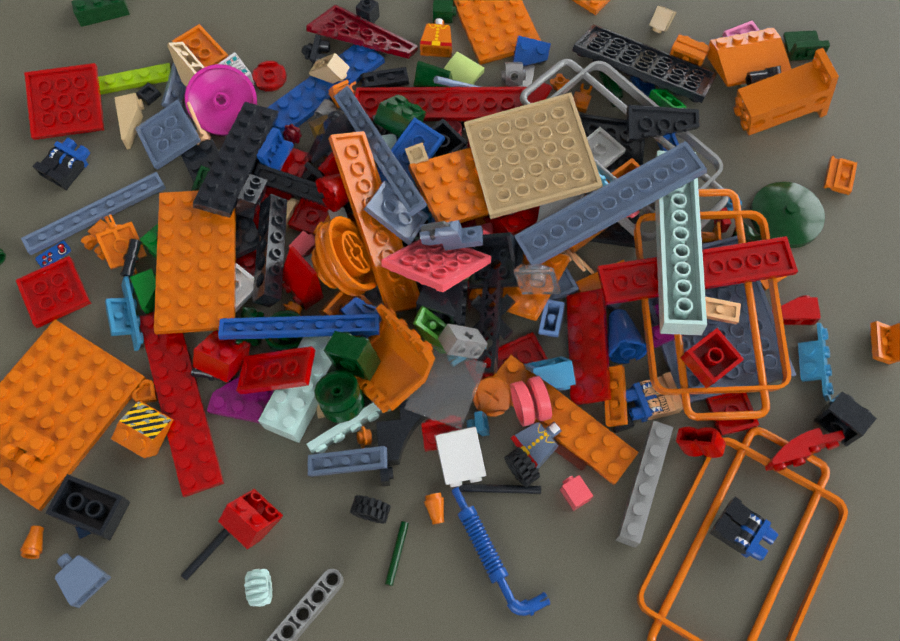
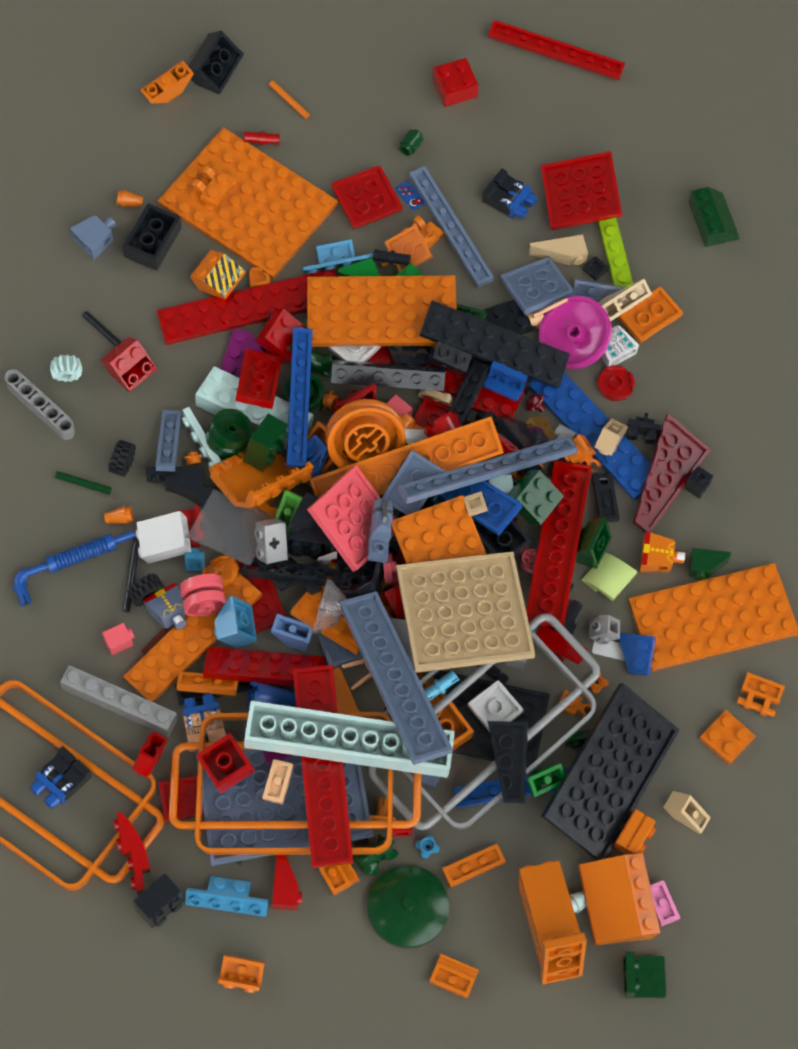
camera: 90 degrees right, 0 degrees up
(452, 83) = (582, 568): sand blue bar -> none
(741, 165) = (473, 865): none -> orange plate
(755, 76) = (583, 906): black piece -> none

